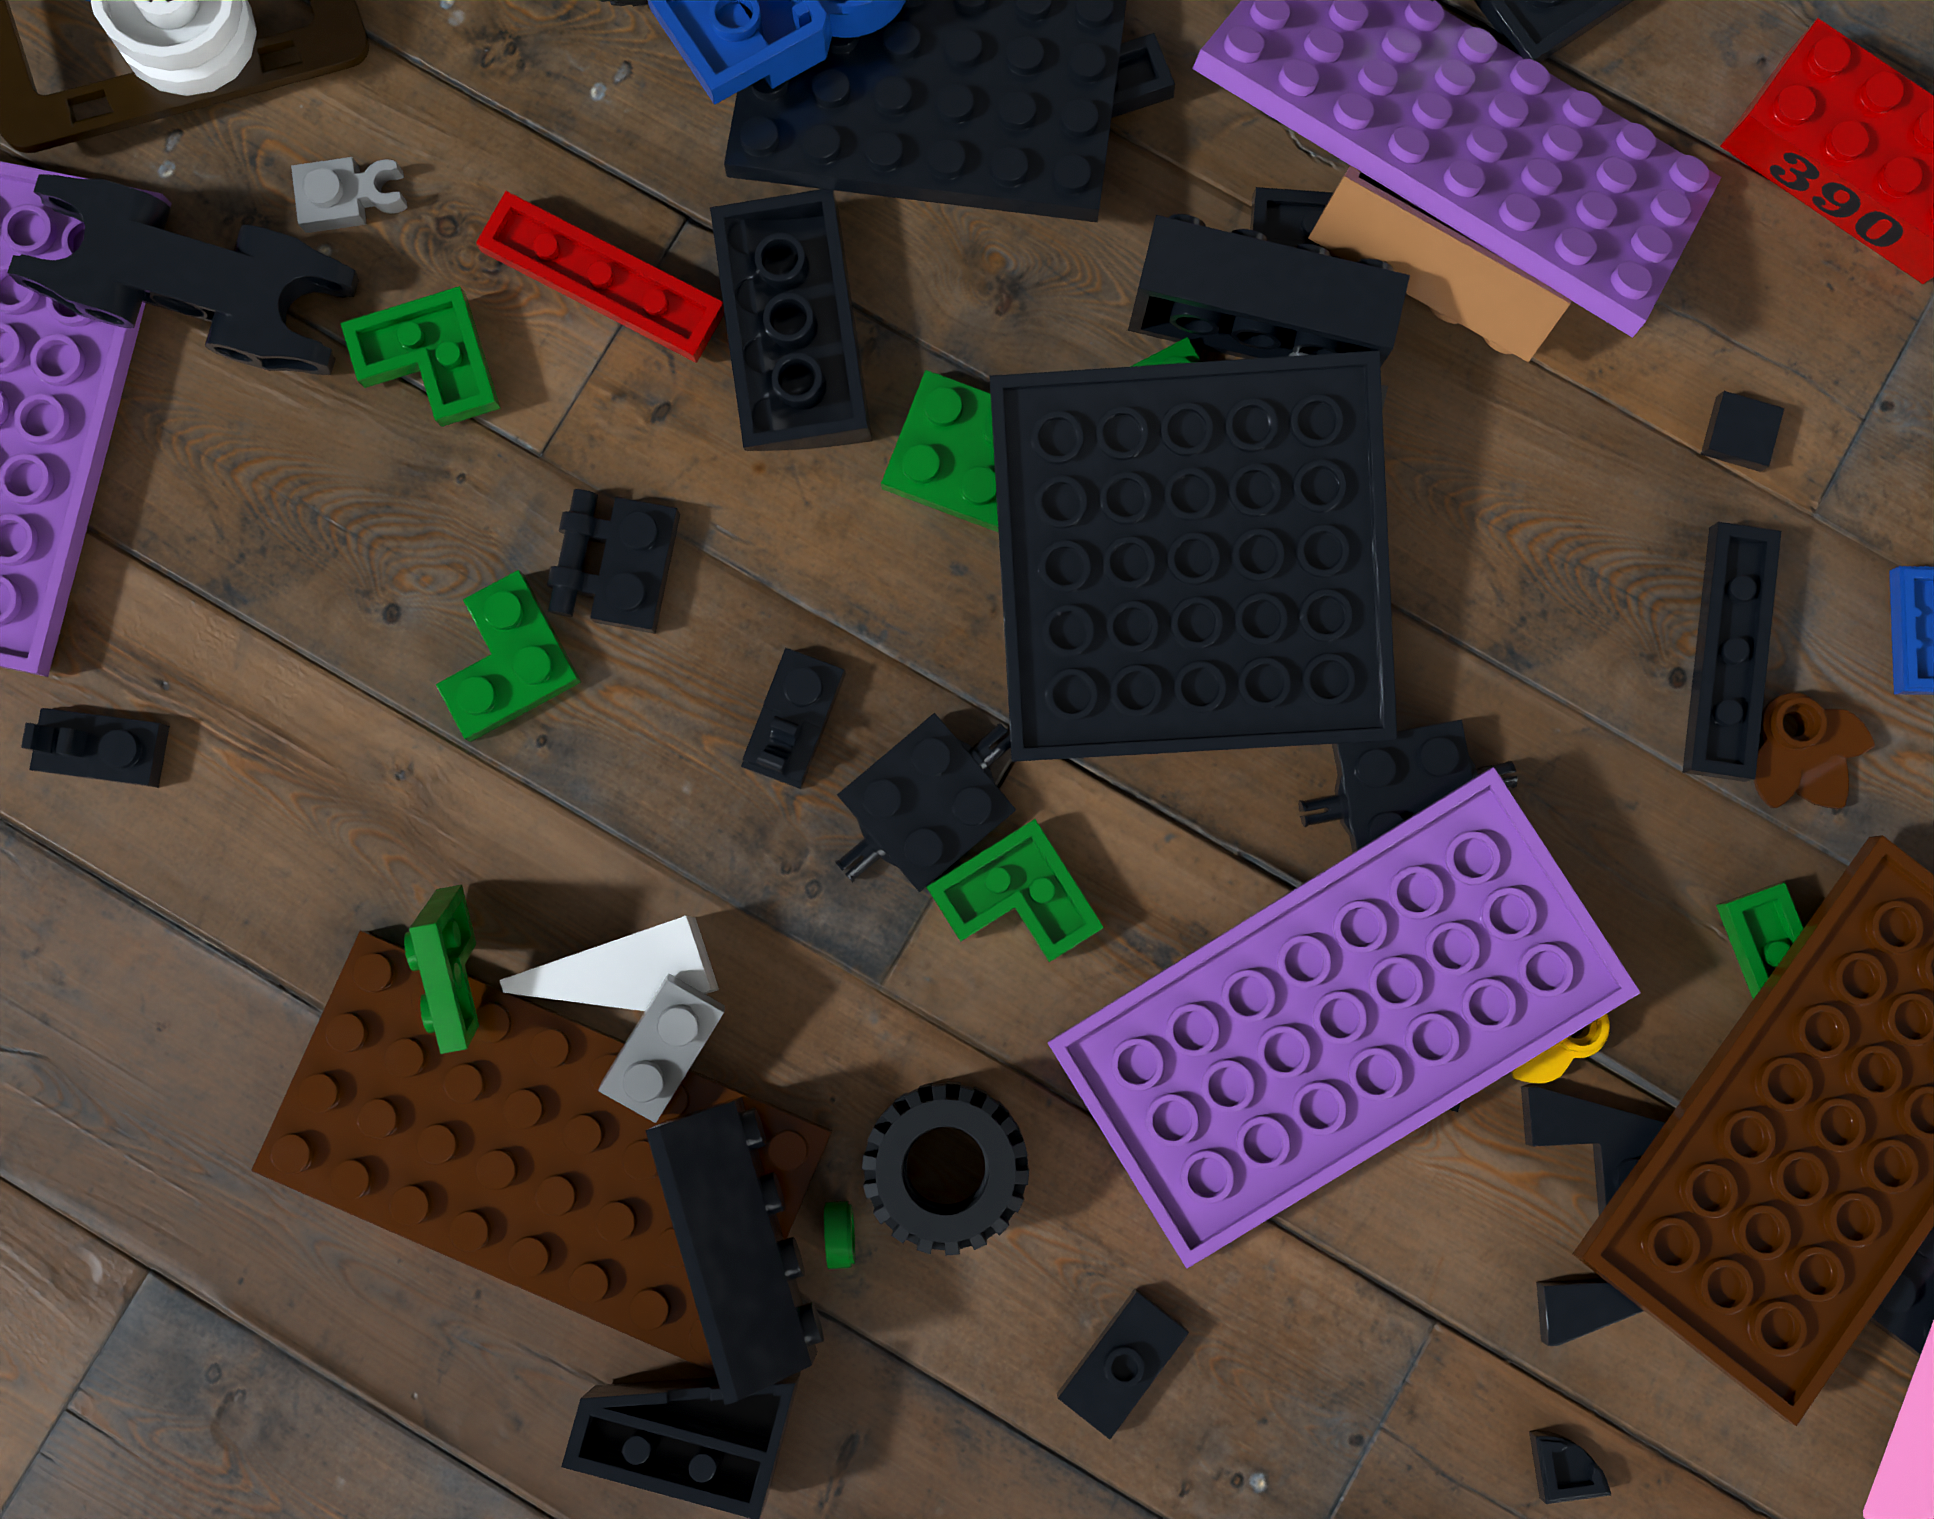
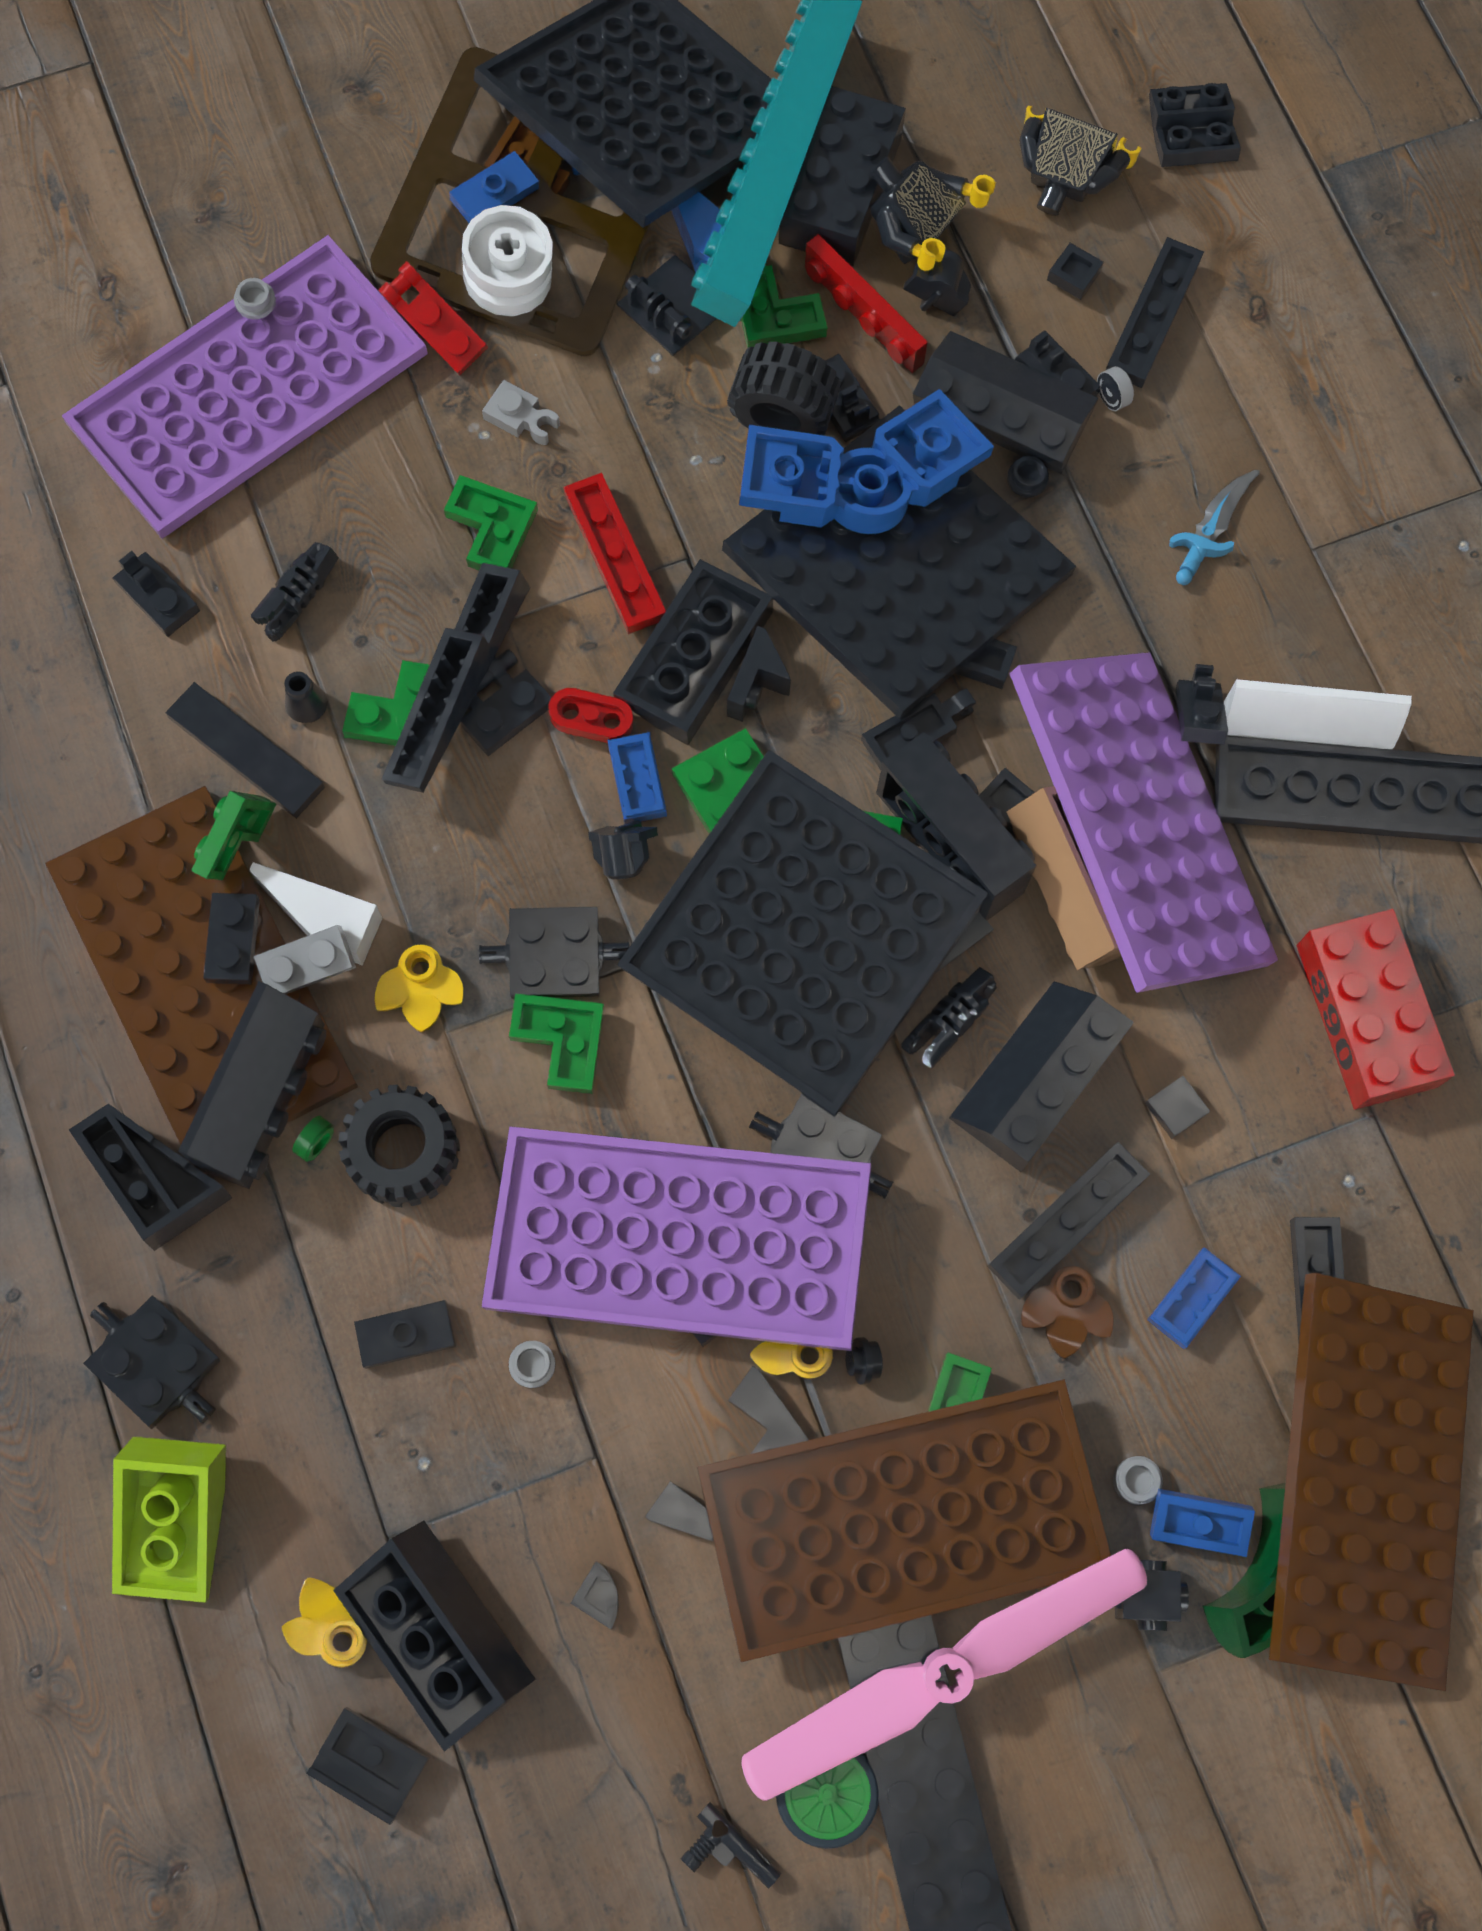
camera: 35 degrees right, 10 degrees down
(135, 261) = (384, 367): black piece -> none
(144, 153) = (434, 319): none -> red plate
(263, 615) = (294, 590): none -> black hinge
(368, 850) = (245, 750): none -> black tile
(400, 740) = (304, 698): none -> black cone
(545, 571) = (455, 675): none -> black slope
(550, 1086) = (231, 938): none -> black plate
(735, 488) = (593, 712): none -> red plate
(793, 718) = (522, 854): black plate -> none
(813, 973) = (419, 994): none -> yellow plate
(851, 525) = (637, 778): none -> blue plate
(887, 282) = (759, 670): none -> black slope
(906, 622) = (622, 848): none -> black piece
(1129, 200) = (928, 716): none -> black plate
(1288, 1281) = (532, 1364): none -> light grey plate
(1426, 523) = (951, 1017): none -> black hinge
(1576, 509) = (1040, 1072): none -> black slope
(1652, 981) = (864, 1360): none -> black plate

